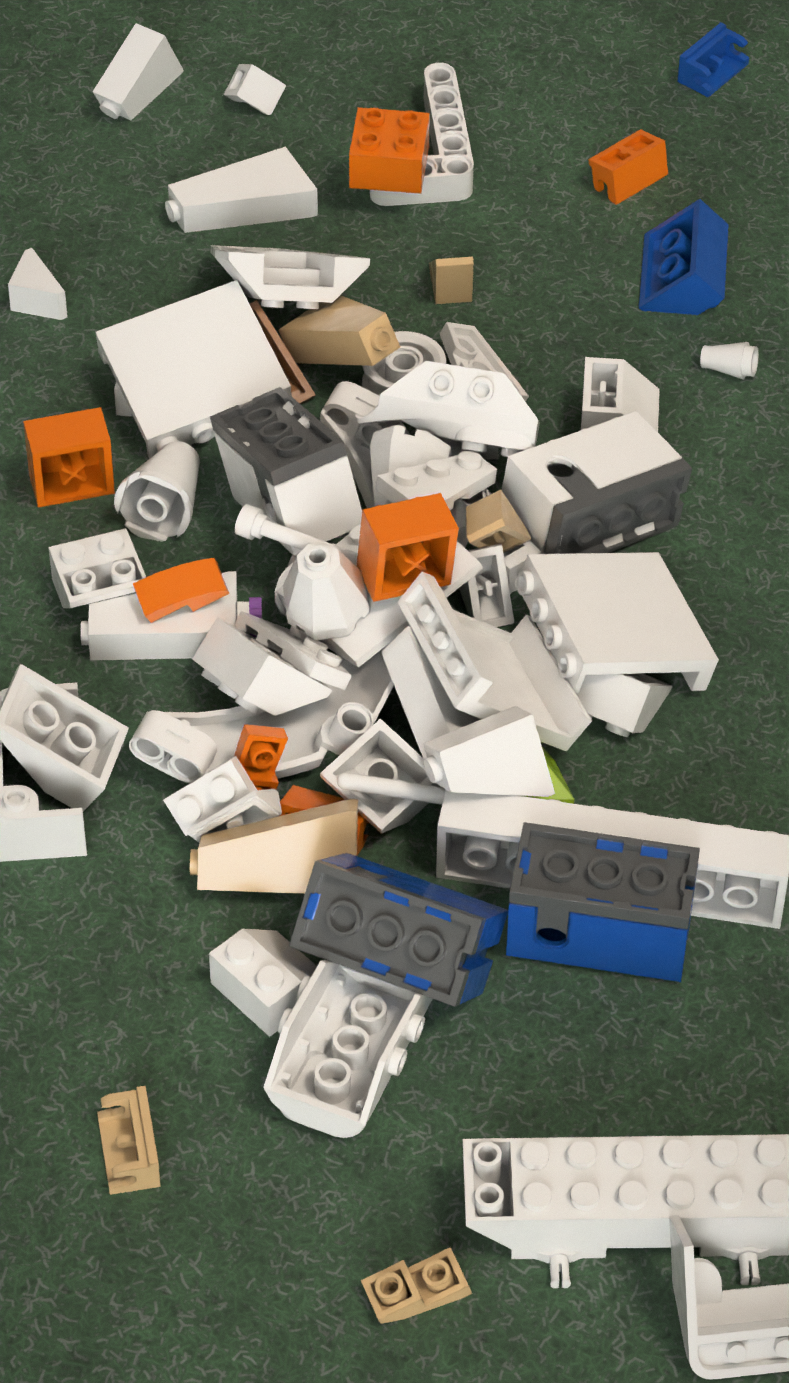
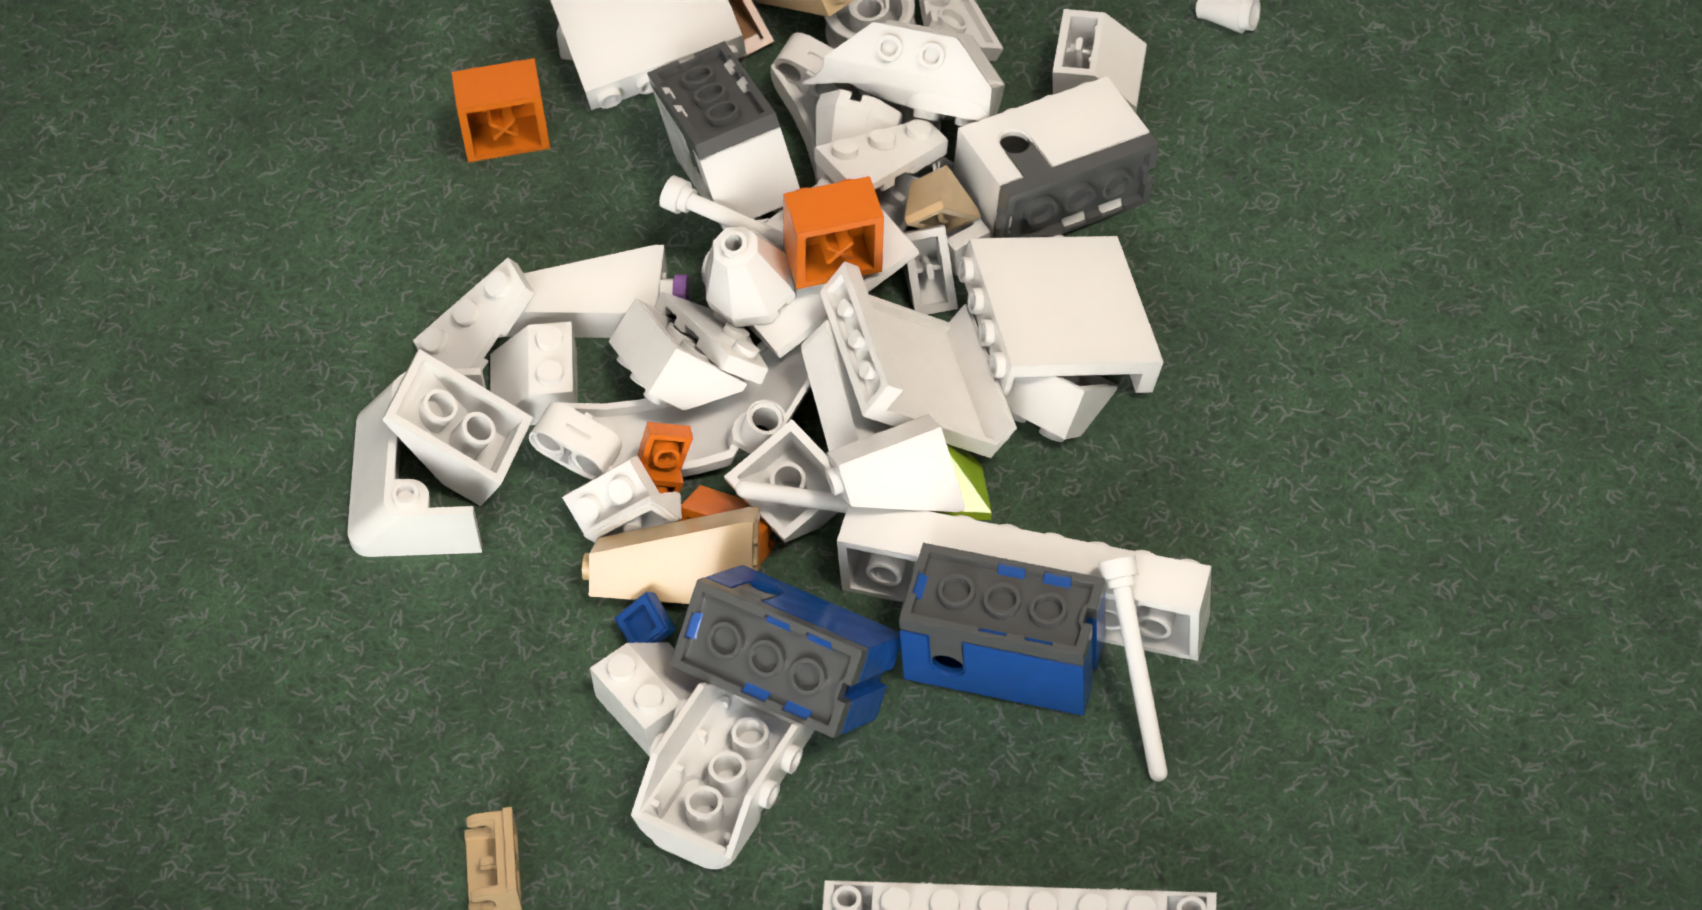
camera: 10 degrees right, 5 degrees up
(68, 639) = (476, 320): none -> white wing
(95, 568) = (520, 231): white slope -> none
(125, 683) = (536, 368): none -> white slope
(160, 493) = (595, 151): white cone -> none
(182, 585) = (607, 260): orange slope -> none
(254, 909) = (645, 620): none -> blue tile
(713, 848) = (1119, 577): none -> white piece

